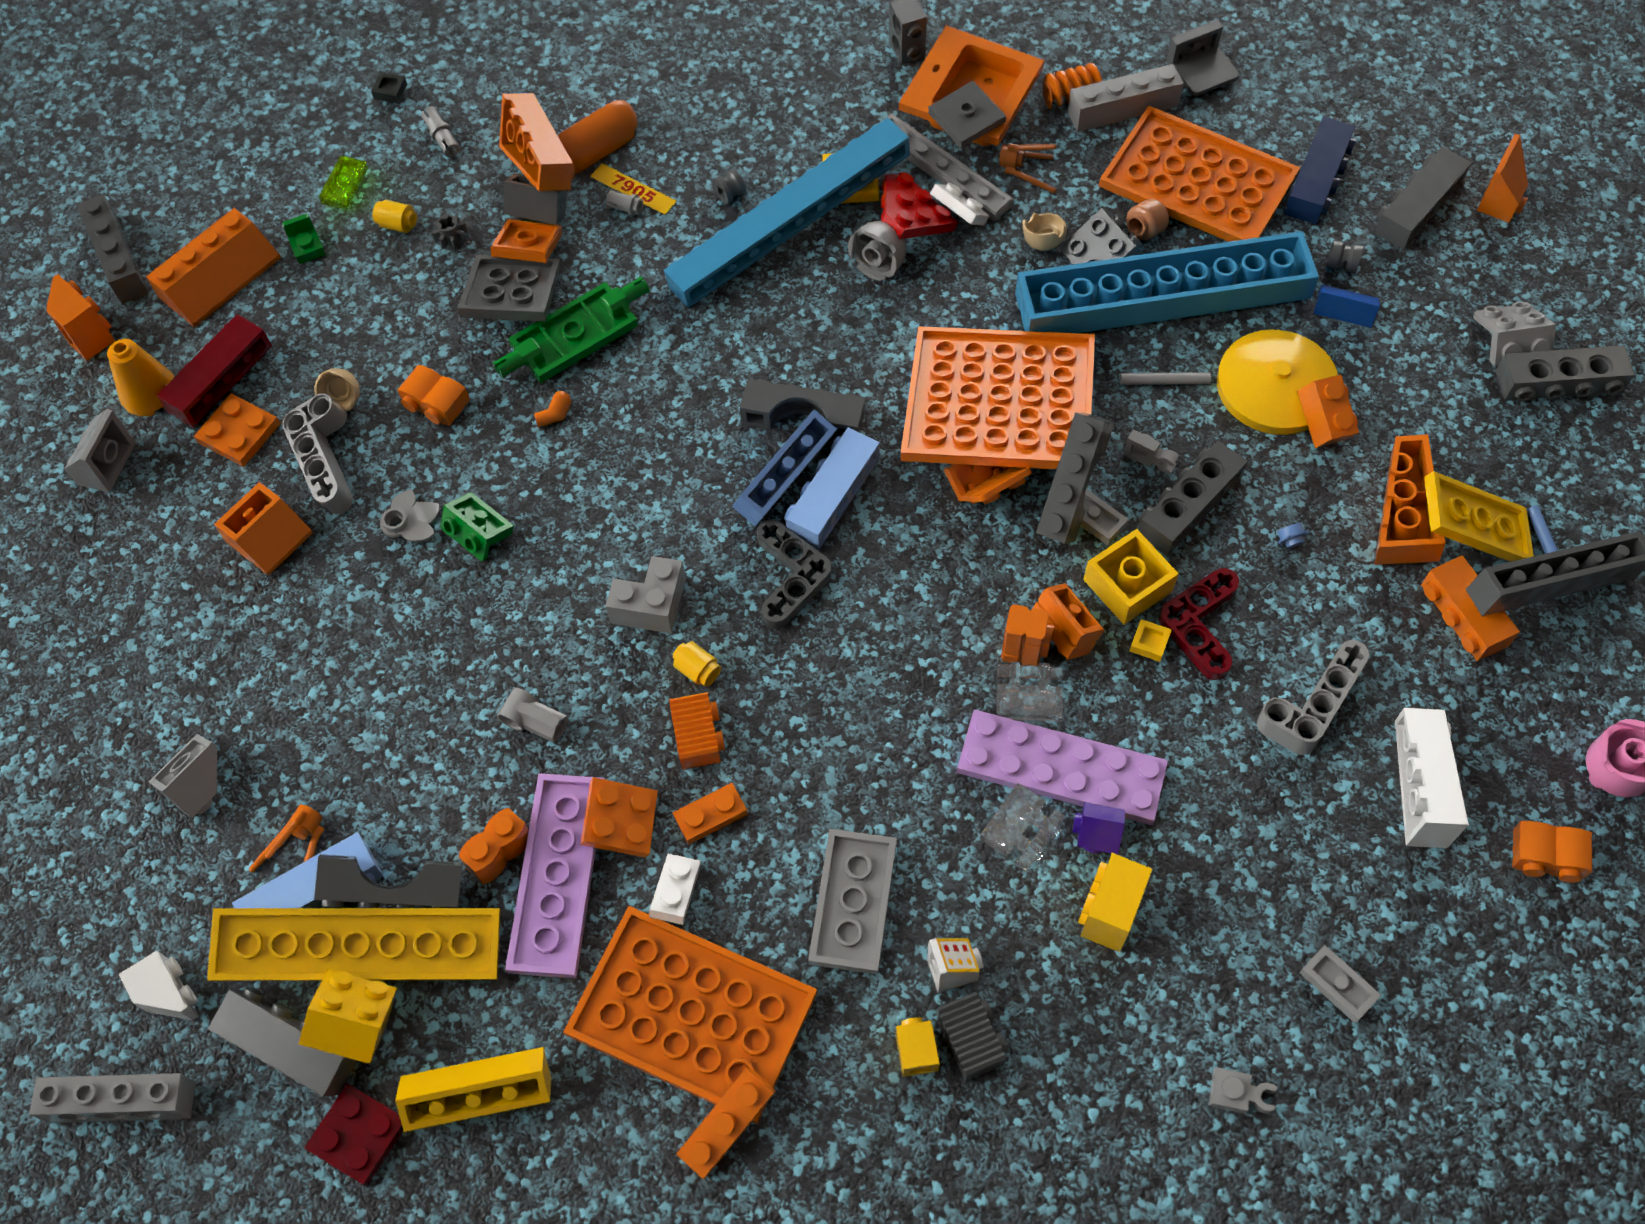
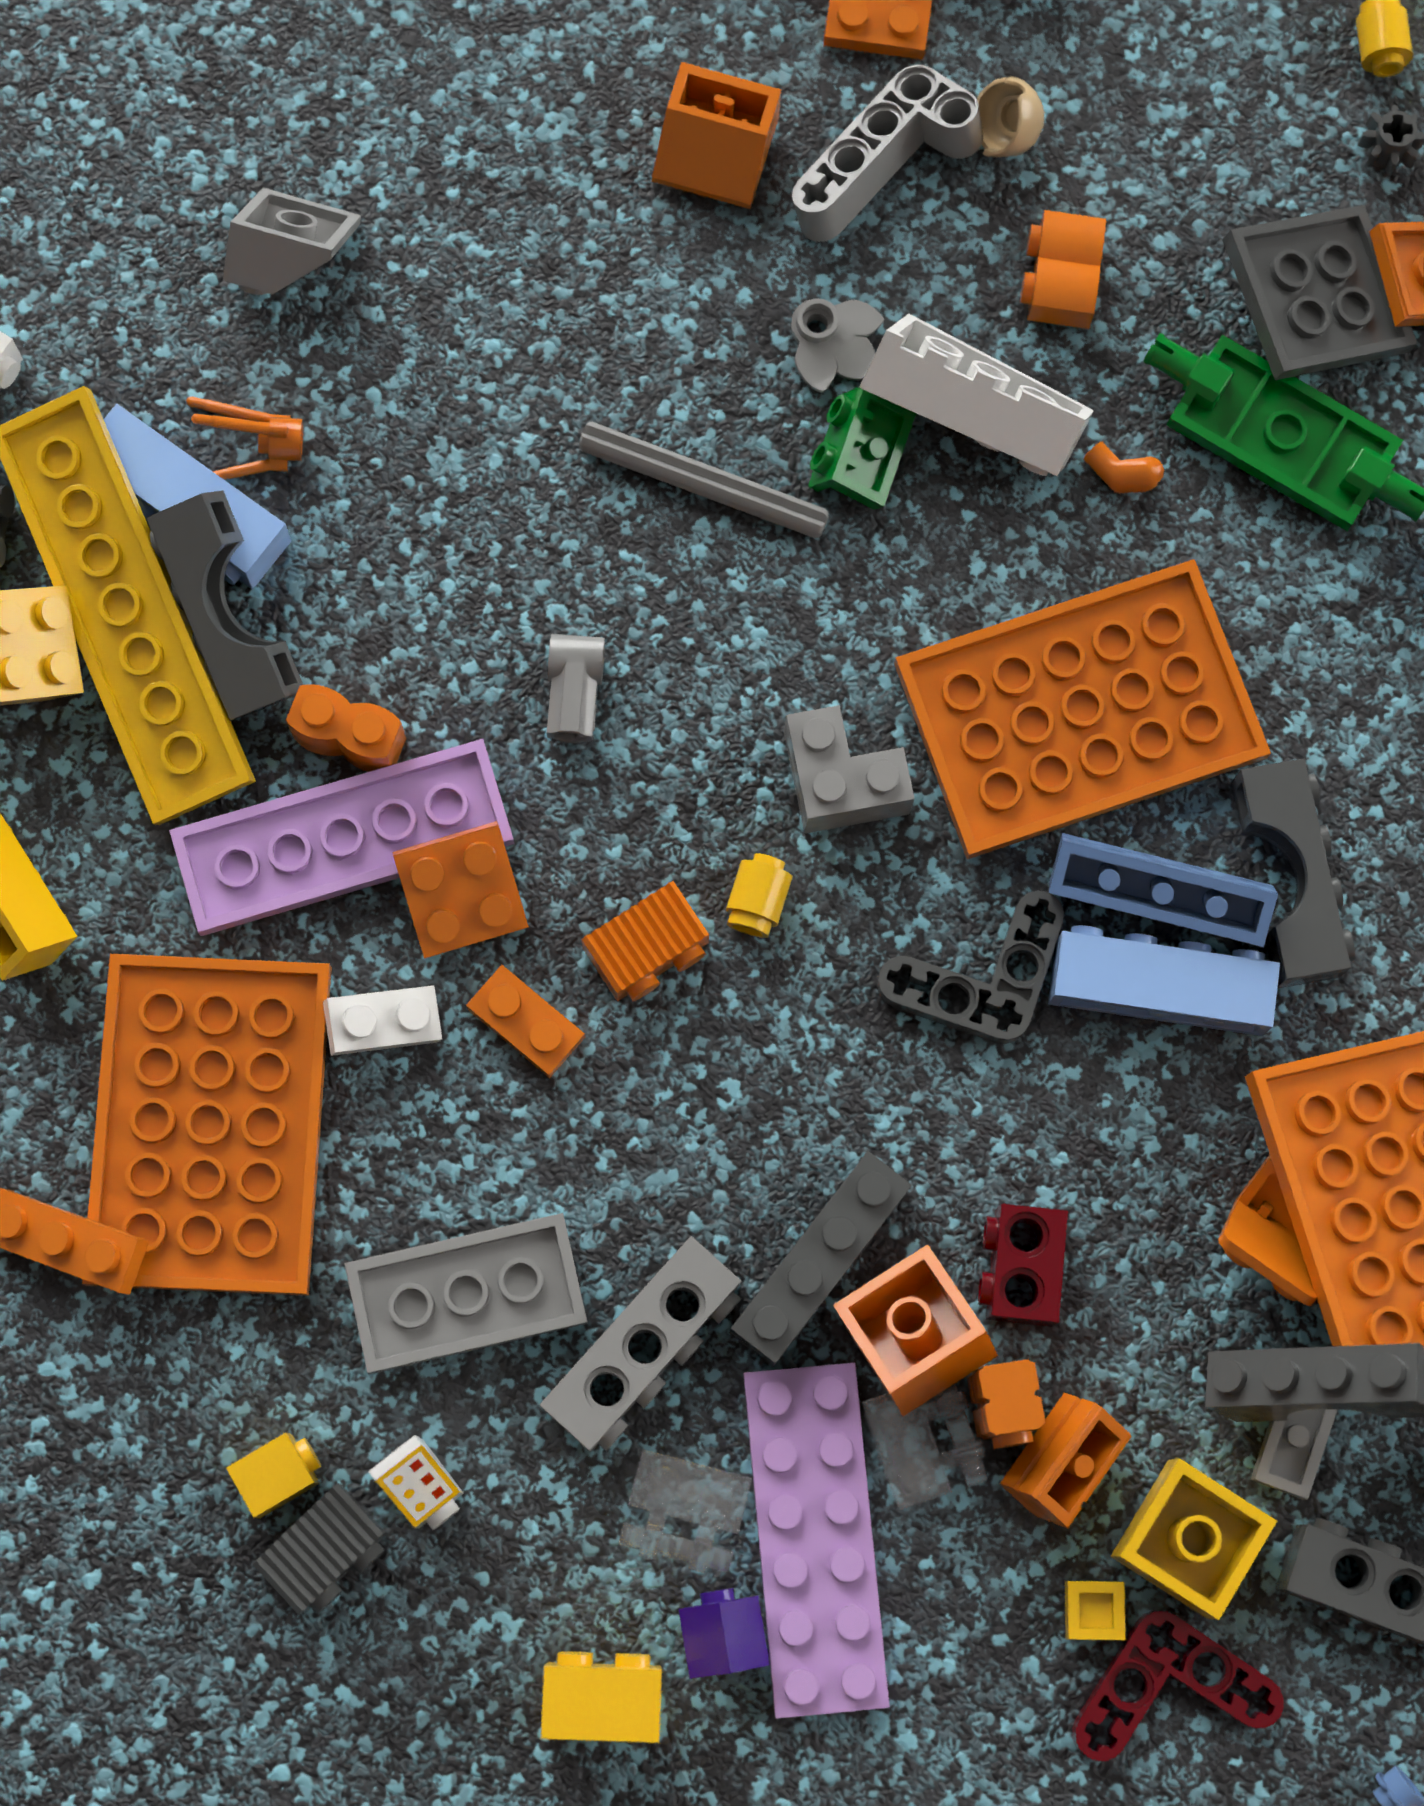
camera: 60 degrees right, 15 degrees up
(449, 610) = (703, 479): none -> light grey axle
(480, 455) = (975, 395): none -> white wedge
(669, 475) = (1081, 708): none -> orange plate
(911, 704) = (820, 1259): none -> dark grey brick
(939, 863) = (688, 1270): none -> light grey brick
(959, 599) = (1039, 1267): none -> dark red brick
(969, 666) = (915, 1330): none -> orange brick

